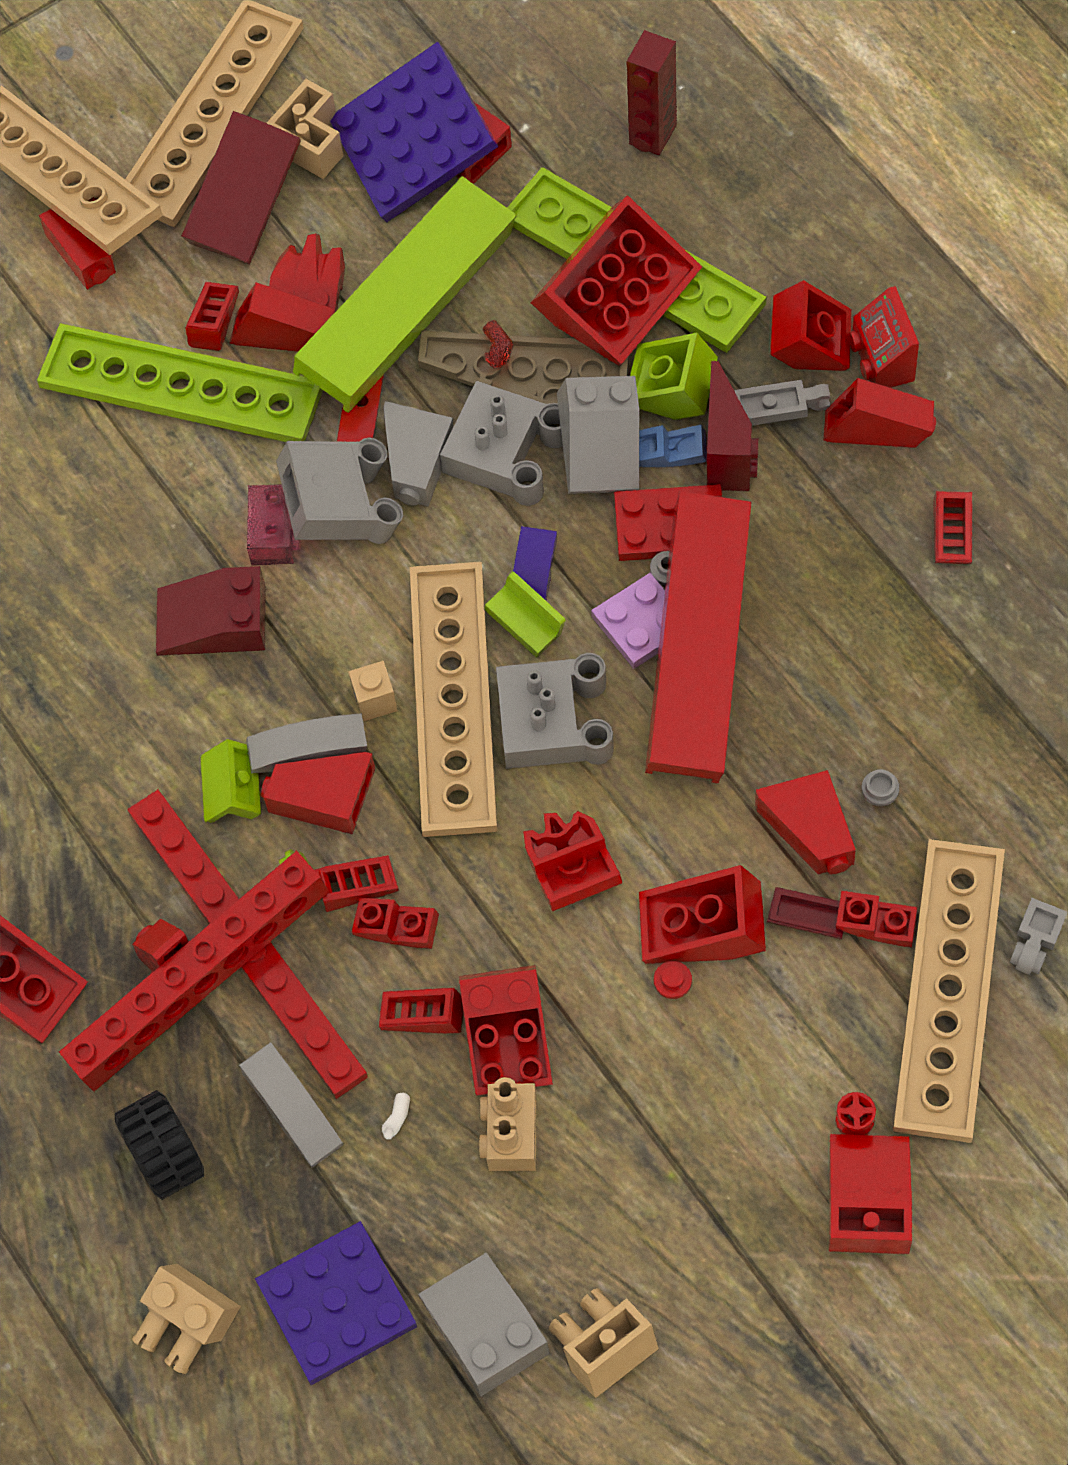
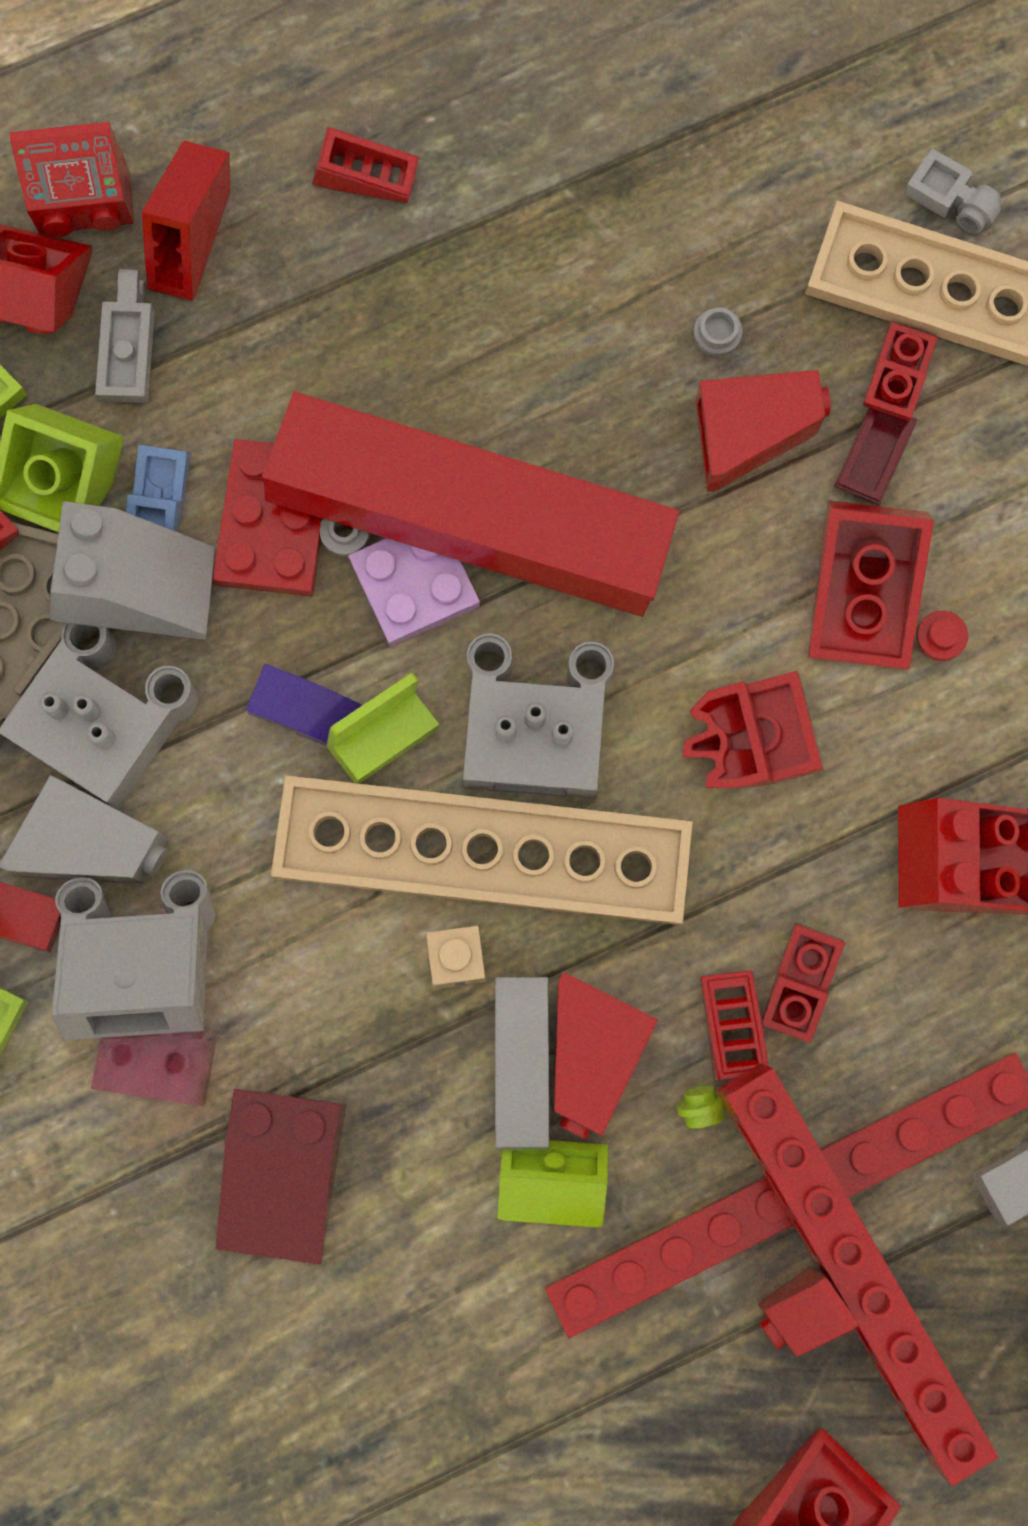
camera: 85 degrees left, 15 degrees up
(442, 999) = (963, 932): red slope -> none
(730, 449) = (167, 407): dark red slope -> none

